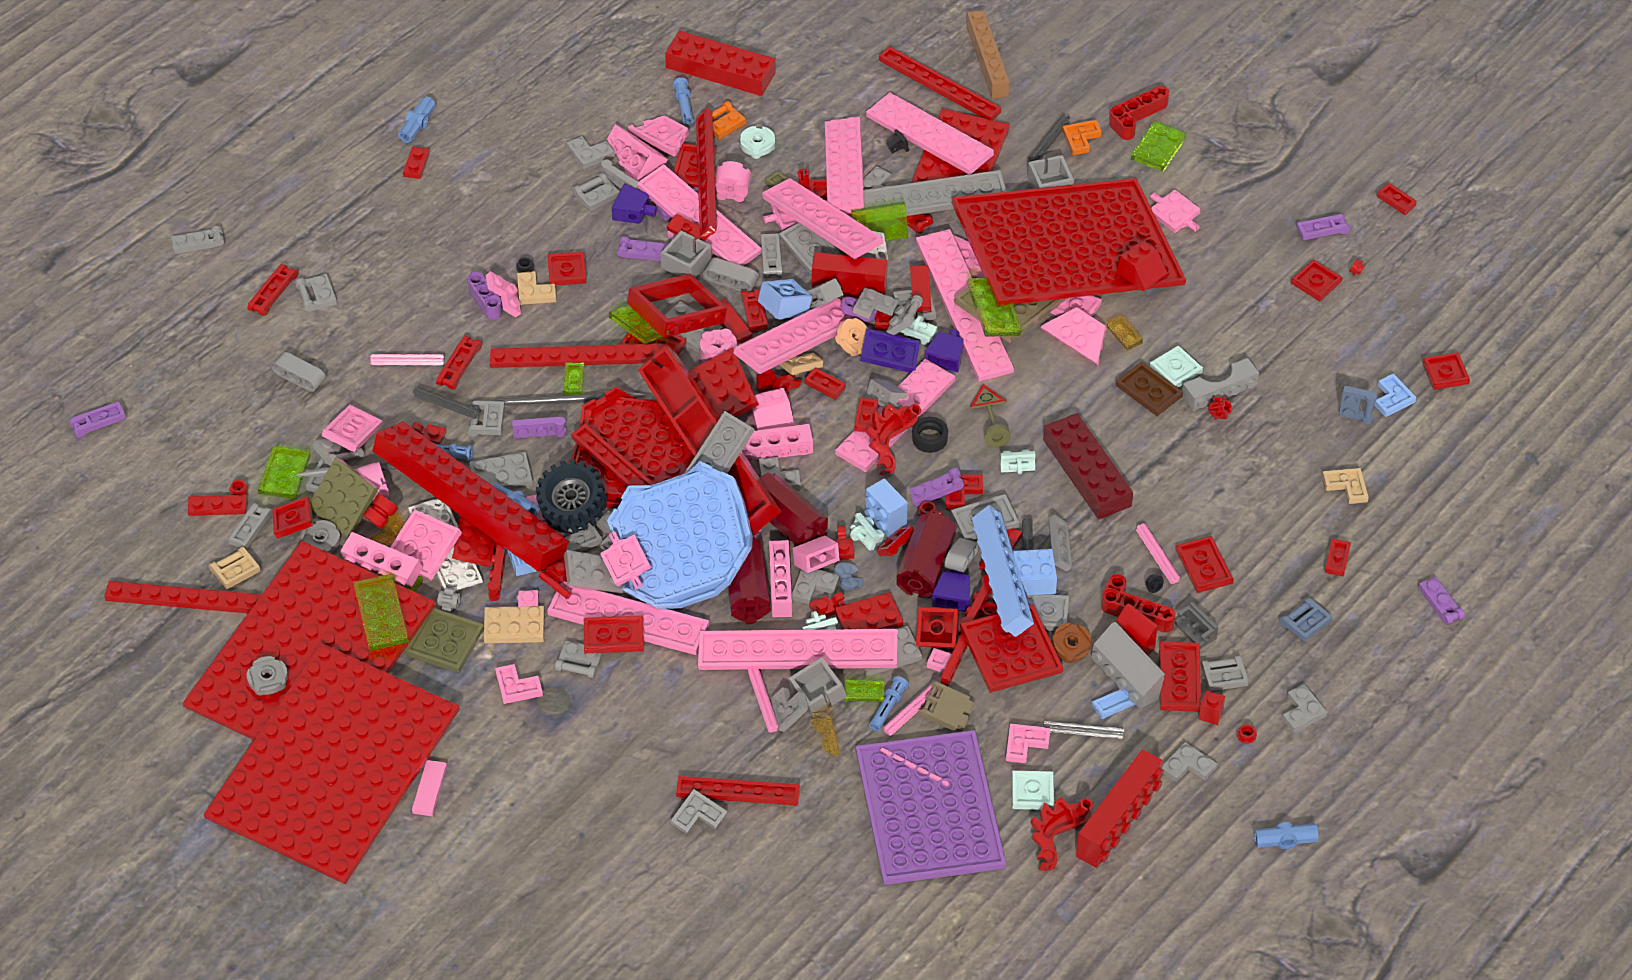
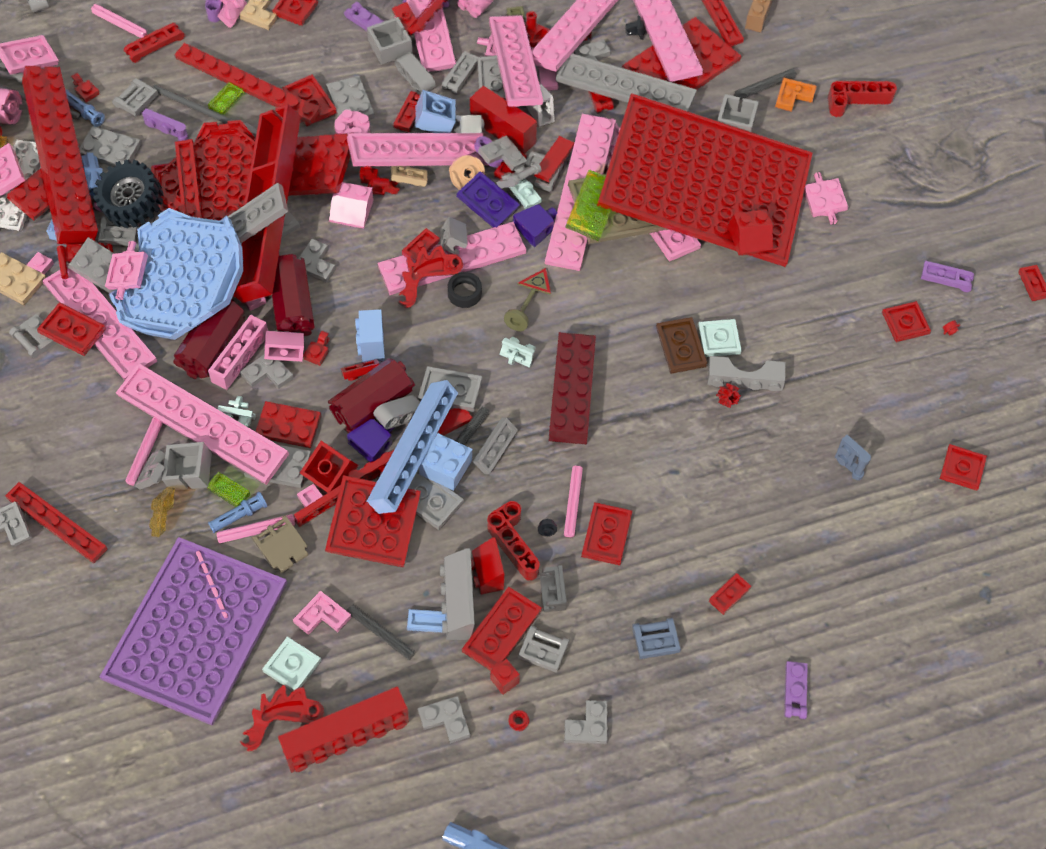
camera: 30 degrees right, 10 degrees up
(445, 402) = (115, 69): dark grey axle -> none
(496, 574) = (32, 230): red plate -> none
(634, 324) = (310, 77): clear neon green plate -> none
(641, 297) = (347, 59): red window -> none
(735, 324) = (385, 111): red tile -> none
(779, 442) = (332, 231): bright pink brick -> none
(825, 383) = (415, 202): red plate -> none
(826, 606) = (258, 395): red plate -> none
(845, 572) = (298, 373): sand blue piece -> none
(863, 530) = (340, 345): light aqua hips -> none
(886, 218) = (565, 87): clear neon green plate -> none
(926, 506) = (410, 351): red plate -> none
(937, 487) = (429, 340): medium lavender plate -> none
(972, 485) = (449, 348): red plate -> none
(1064, 650) = (423, 536): dark orange plate -> none
(1079, 333) = (658, 264): bright pink wing -> none
(1124, 332) = (698, 283): clear yellow plate -> none
(1158, 146) = (855, 134): clear neon green plate -> none
(1347, 479) = (796, 527): tan plate -> none
(1396, 396) = (899, 469): light blue plate -> none

